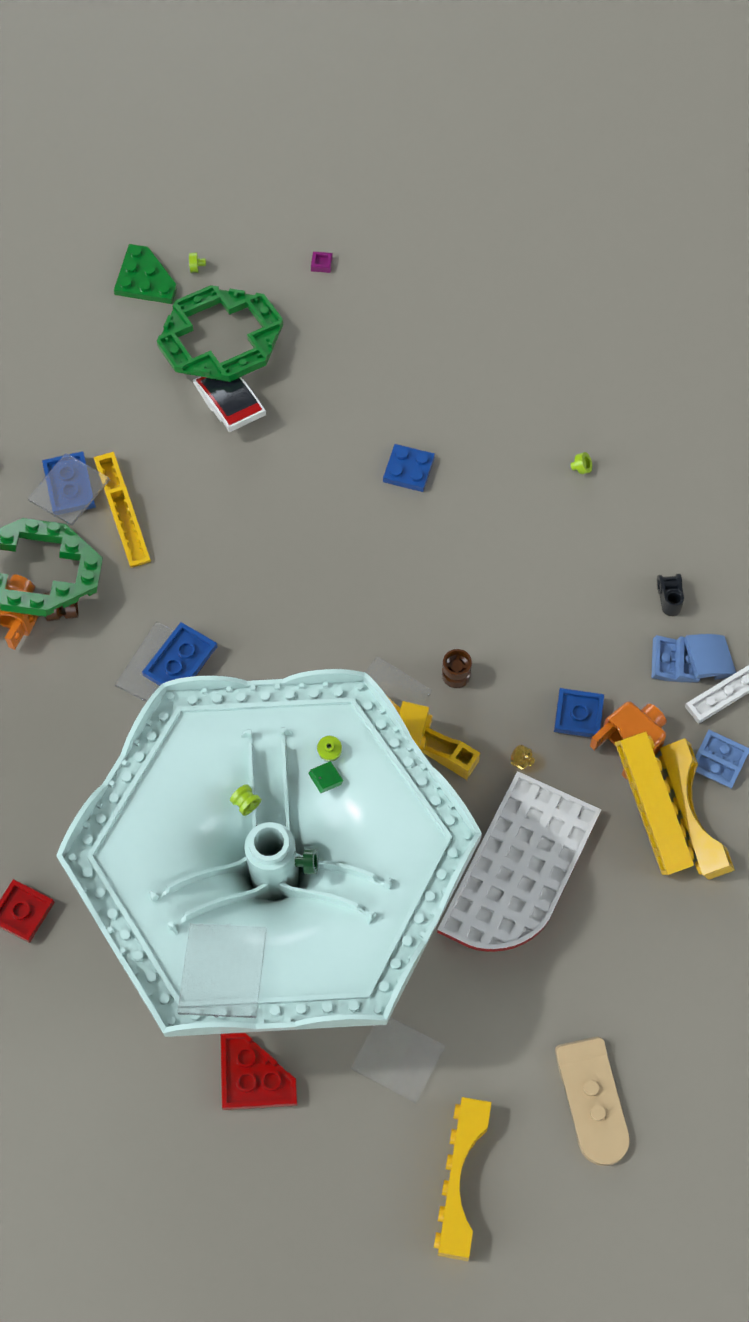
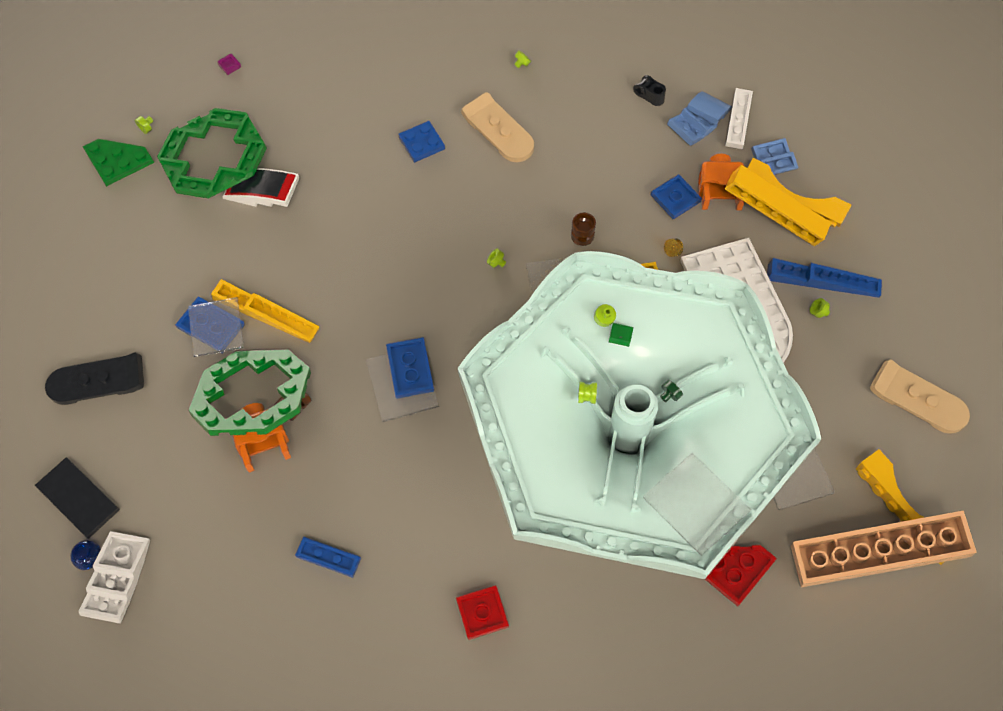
camera: 45 degrees left, 0 degrees up
(354, 628) = (496, 258): none -> lime tile
(387, 1184) = (883, 549): none -> light nougat brick
(490, 513) = (499, 128): none -> tan piece
(593, 934) = (820, 308): none -> lime tile
(633, 912) = (823, 278): none -> blue slope

